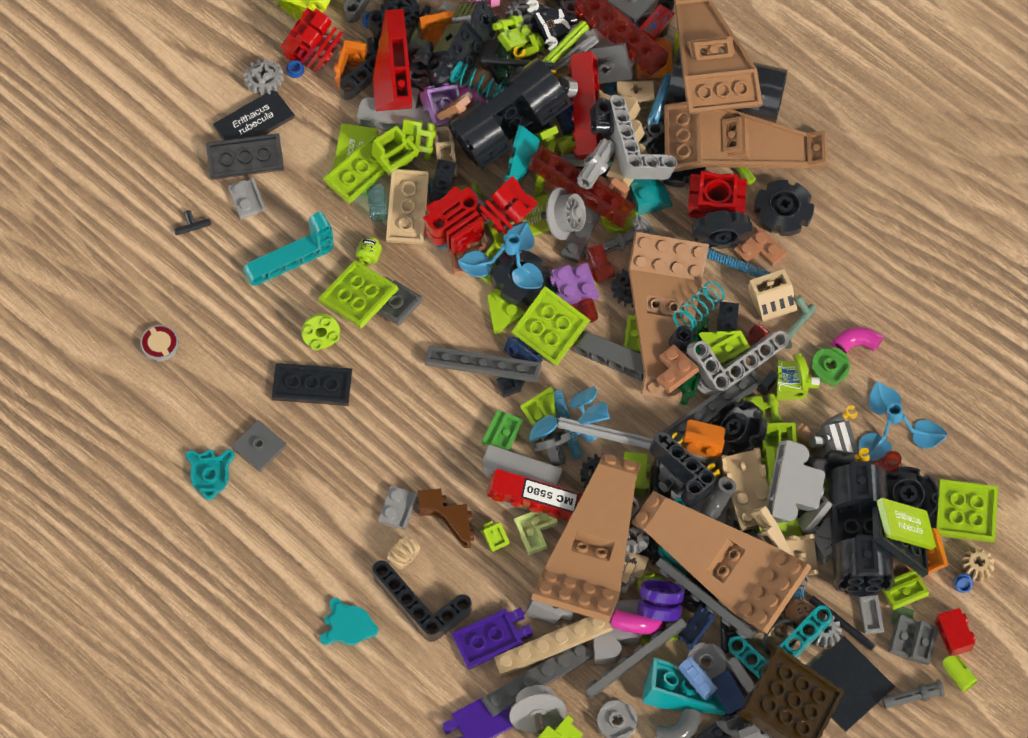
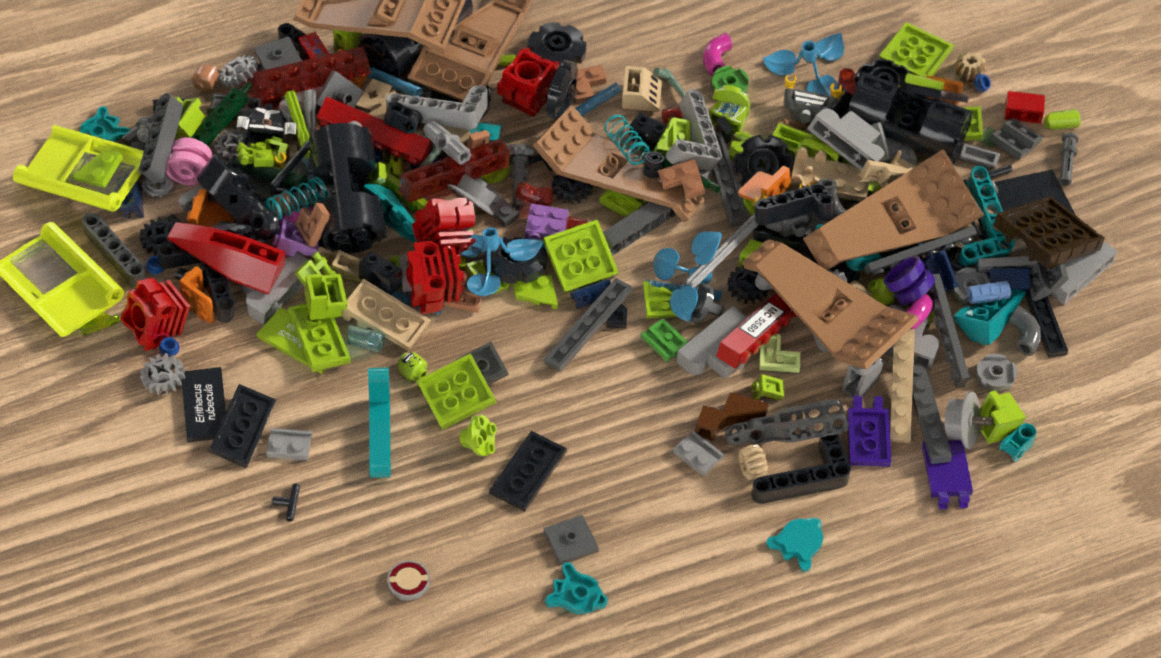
camera: 65 degrees left, 10 degrees down
(448, 554) = (782, 428): none -> dark grey piece

